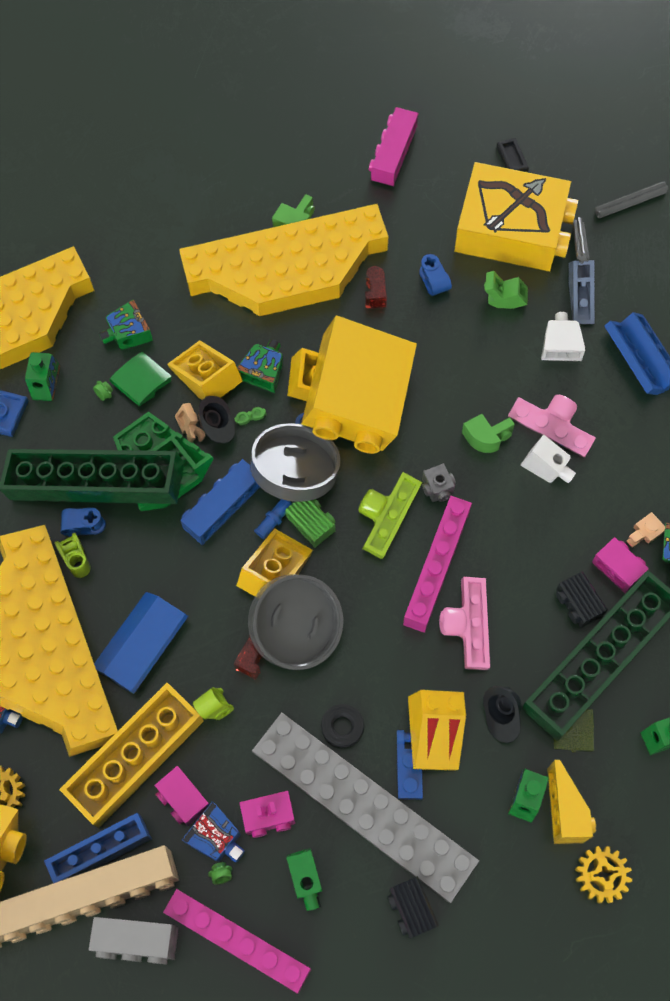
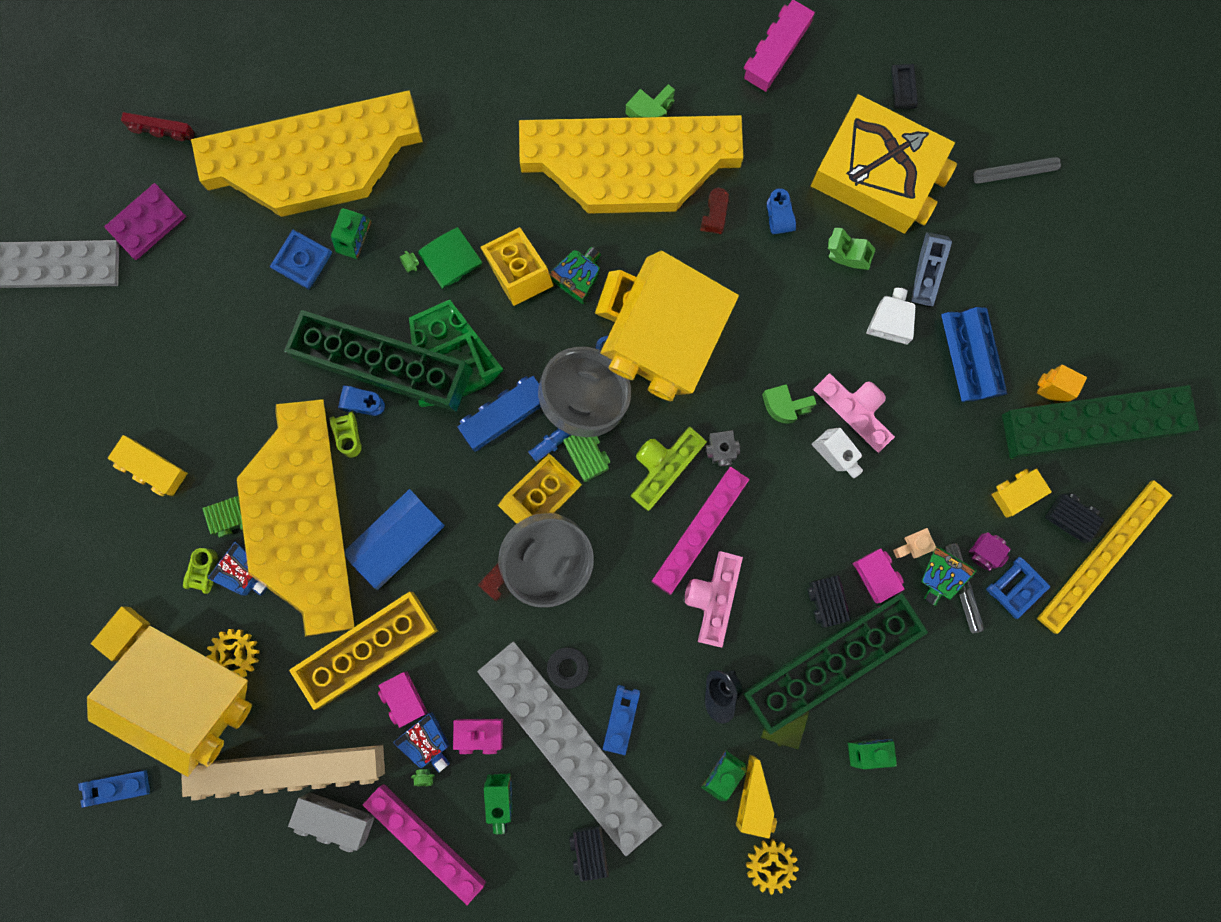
camera: 10 degrees right, 15 degrees up
(98, 849) = (315, 732): blue brick -> none
(126, 327) = (446, 195): torso -> none
(187, 422) = (487, 318): light nougat plate -> none
(213, 704) = (448, 621): lime piece -> none
(216, 419) = (516, 325): black piece -> none
(256, 414) = (545, 326): bright green piece -> none
(436, 729) = (654, 696): yellow slope -> none
(580, 240) = (945, 212): dark grey axle -> none

